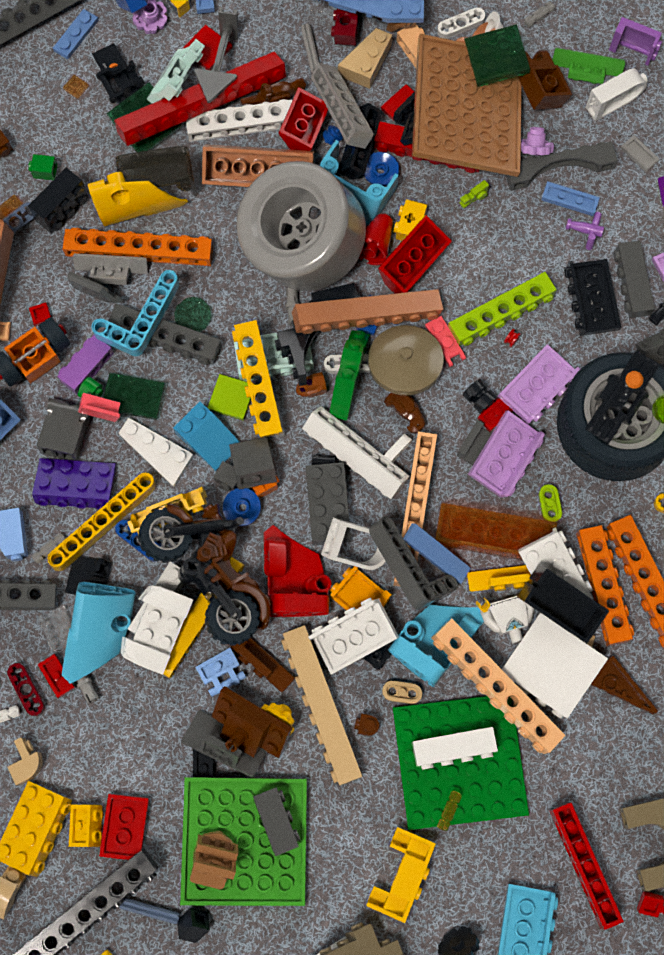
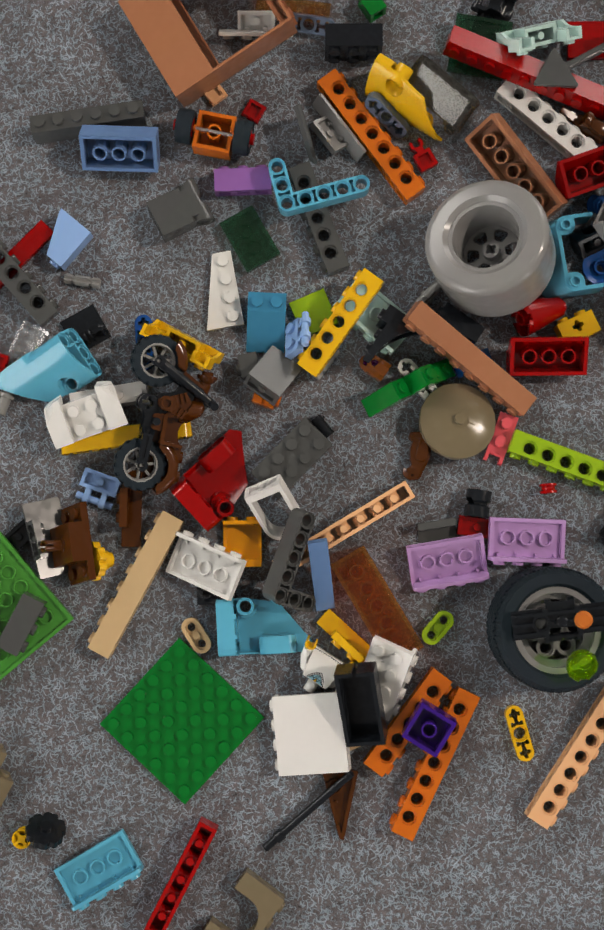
camera: 50 degrees right, 10 degrees up
(73, 483) = (145, 255): dark purple bracket -> none
(90, 387) = (225, 203): green plate -> none
(98, 531) = (125, 298): yellow beam -> none
(99, 407) = (216, 222): coral panel -> none
(128, 216) = (385, 106): none -> sand blue beam
(188, 224) = (423, 157): none -> red plate
(192, 319) = (350, 232): clear green tile -> none
(238, 419) = (297, 335): none -> light blue plate
(238, 497) = (225, 393): blue dish -> none
(355, 452) = (349, 445): white brick -> none
(366, 725) = (150, 629): reddish brown plate -> none
(398, 448) = (372, 474): white beam -> none
(408, 877) = (72, 751): yellow bracket -> none
(449, 811) = (137, 743): clear yellow axle -> none
(454, 747) = (185, 709): white brick -> none
(551, 733) = (256, 774): light nougat brick -> none
(614, 758) = (280, 834): none -> black bar
(623, 568) = (429, 727): none -> dark purple brick

